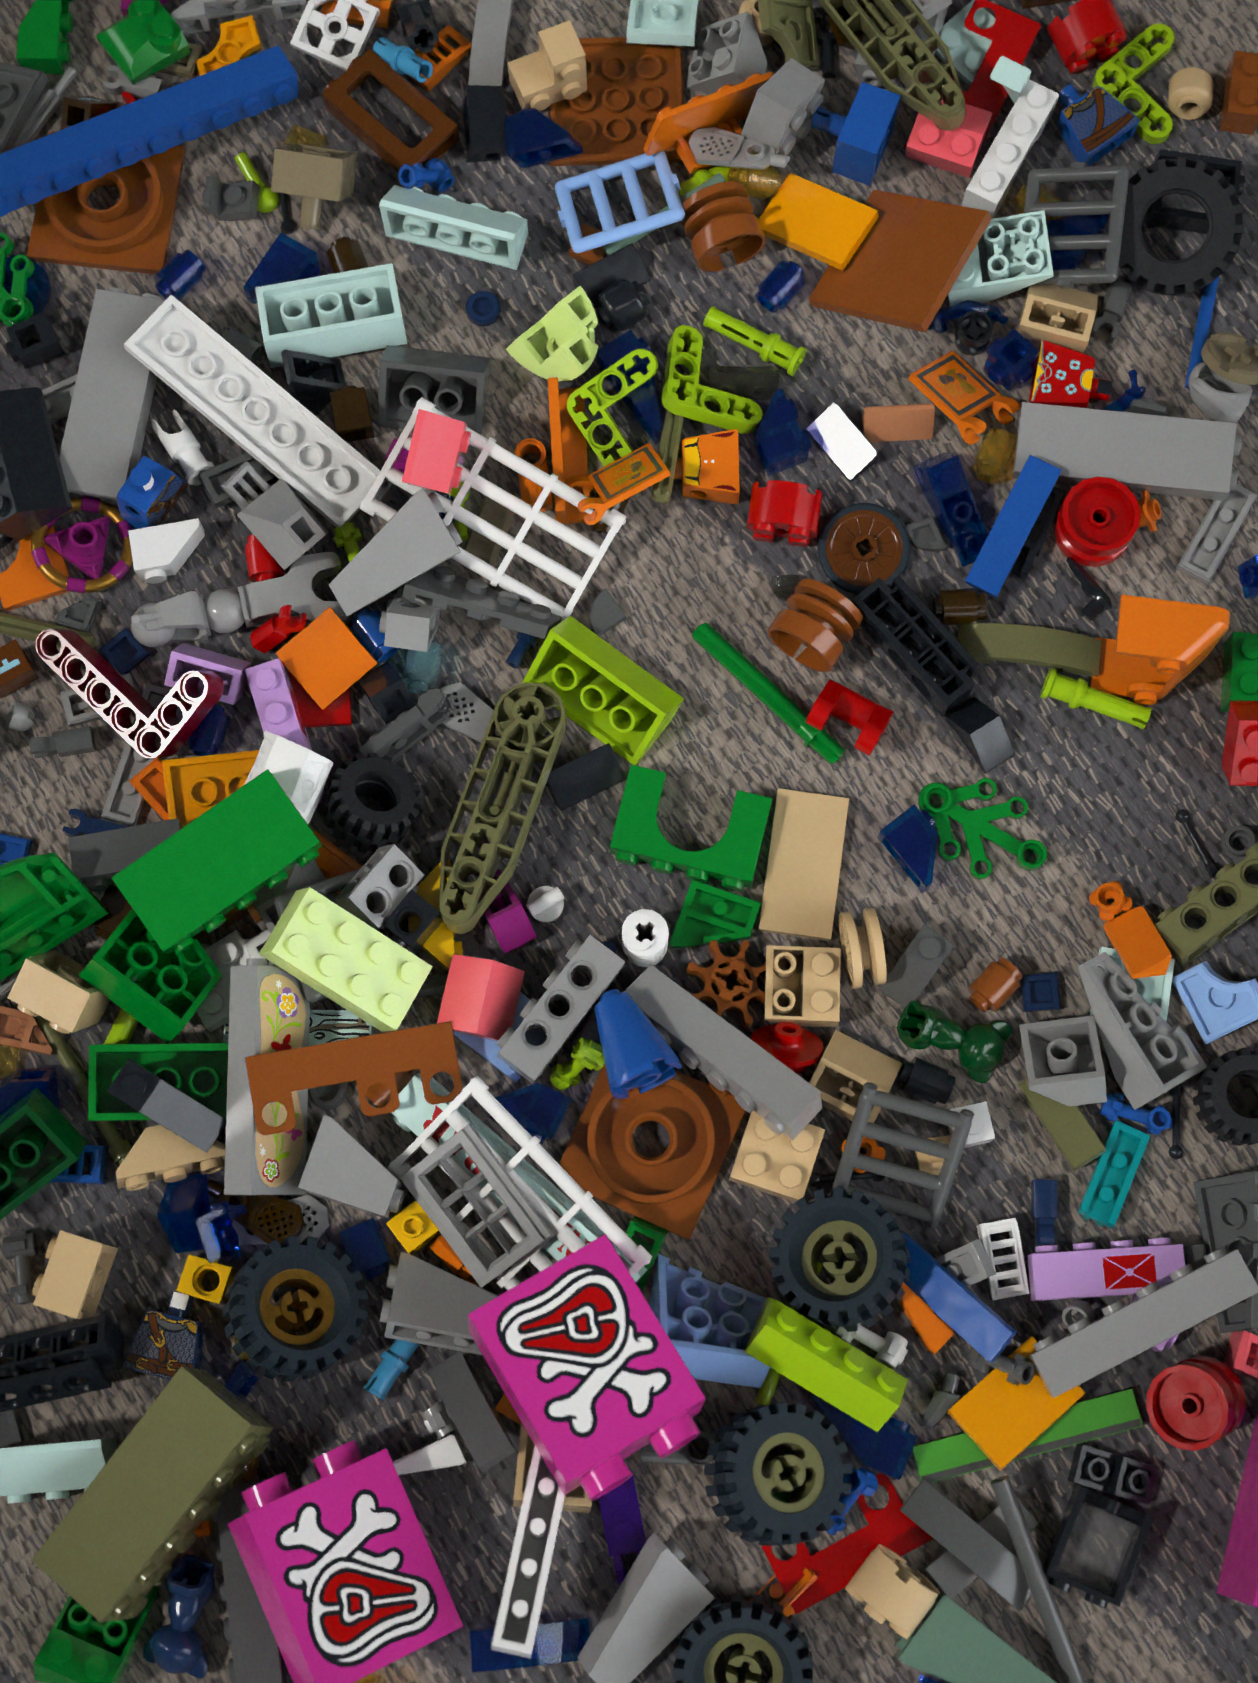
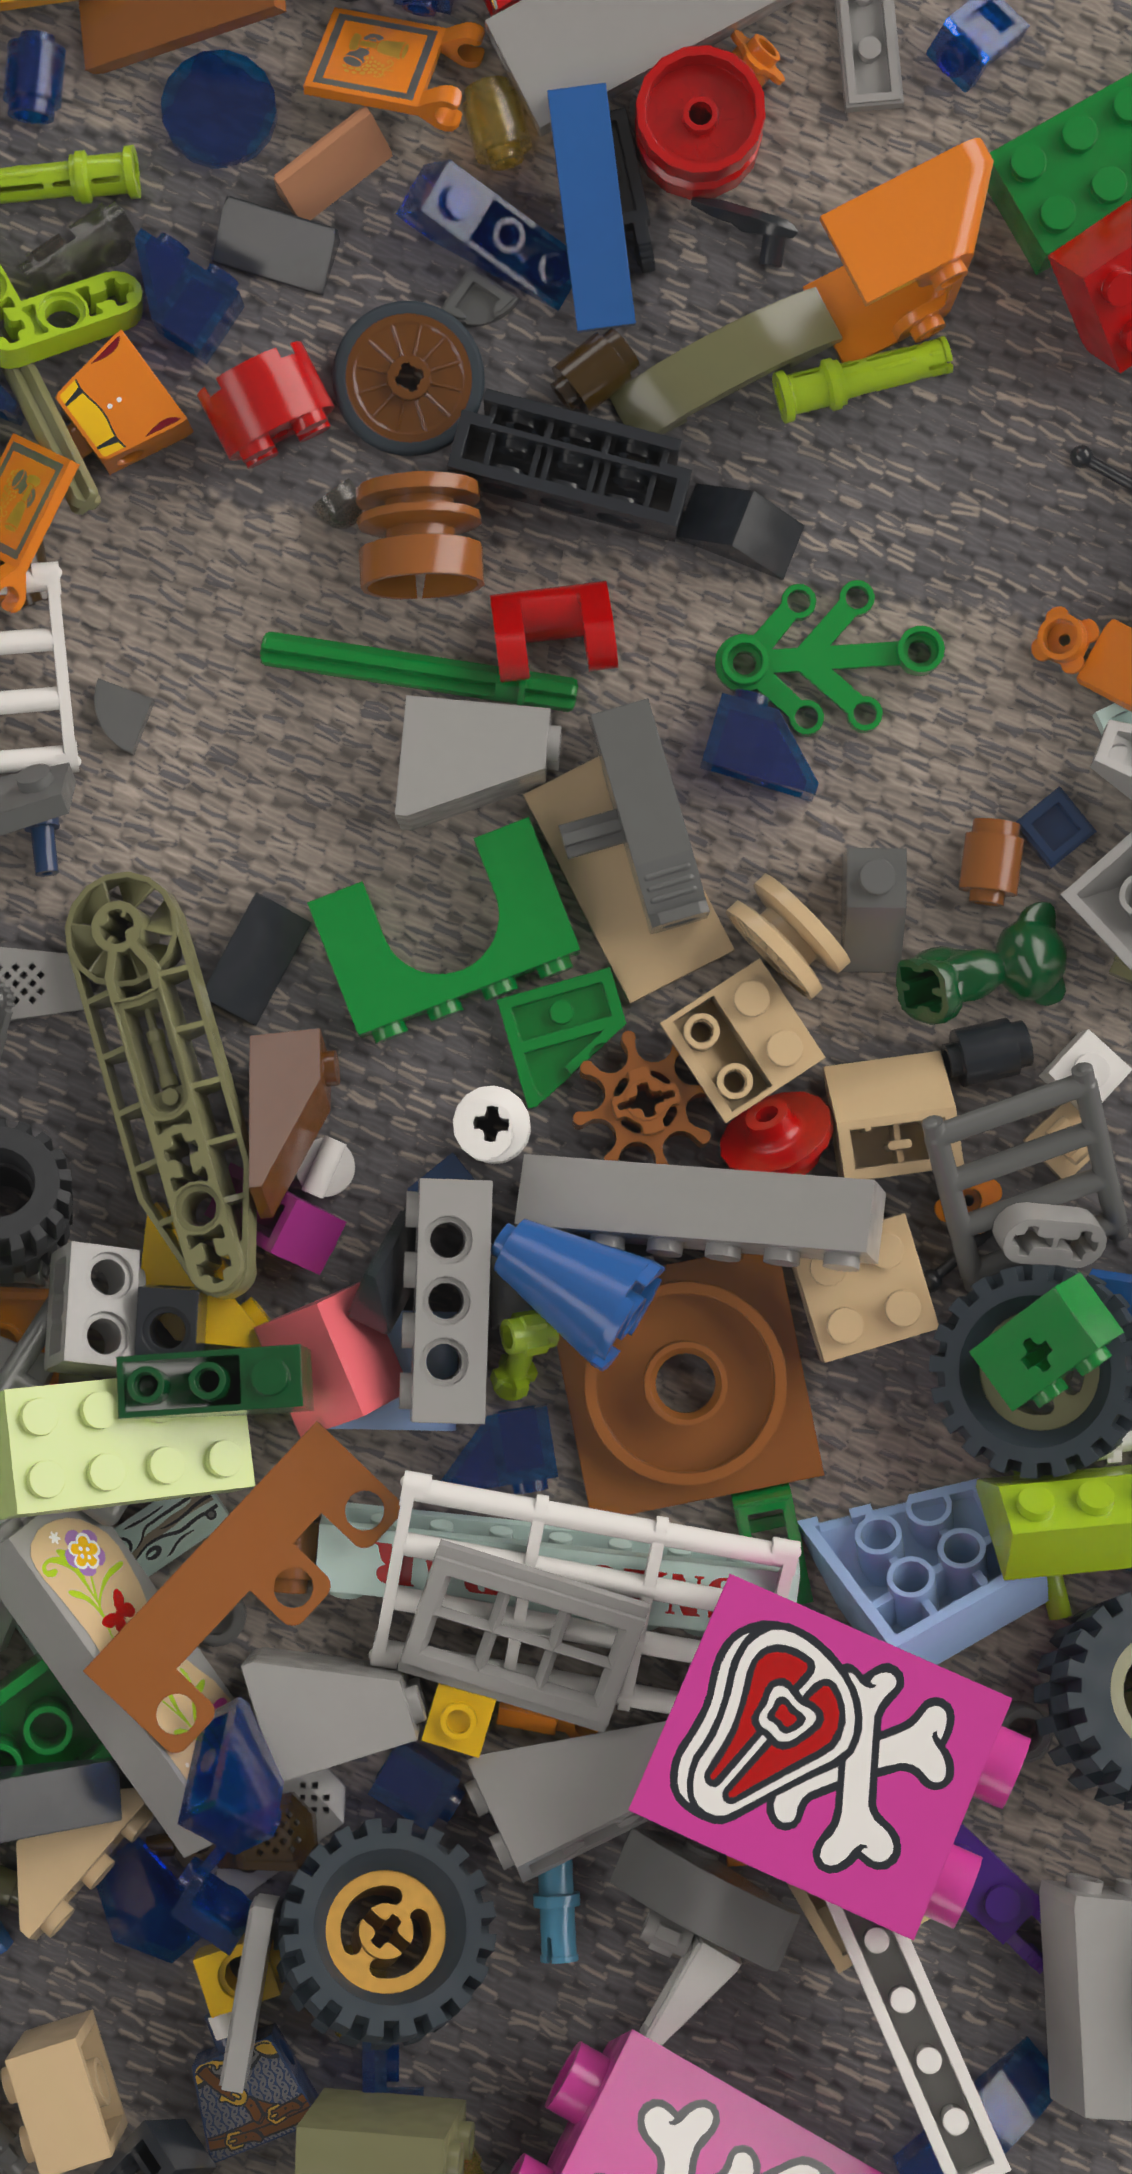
camera: 35 degrees left, 10 degrees up
(205, 1288) = (249, 1993): none -> light grey tile
(277, 1169) = (232, 1782): none -> clear blue slope
(416, 962) = (215, 1382): none -> dark green slope
(528, 979) = (381, 1290): none -> black slope
(547, 857) = (287, 1108): none -> reddish brown slope
(604, 689) = (195, 822): lime slope -> none
(763, 748) = (469, 756): none -> light grey slope
(829, 838) = (642, 818): none -> dark grey piece
(852, 1240) = (1068, 1320): none -> green brick
(861, 360) = (219, 108): none -> clear blue tile
(896, 1191) = (1047, 1242): none -> light grey beam

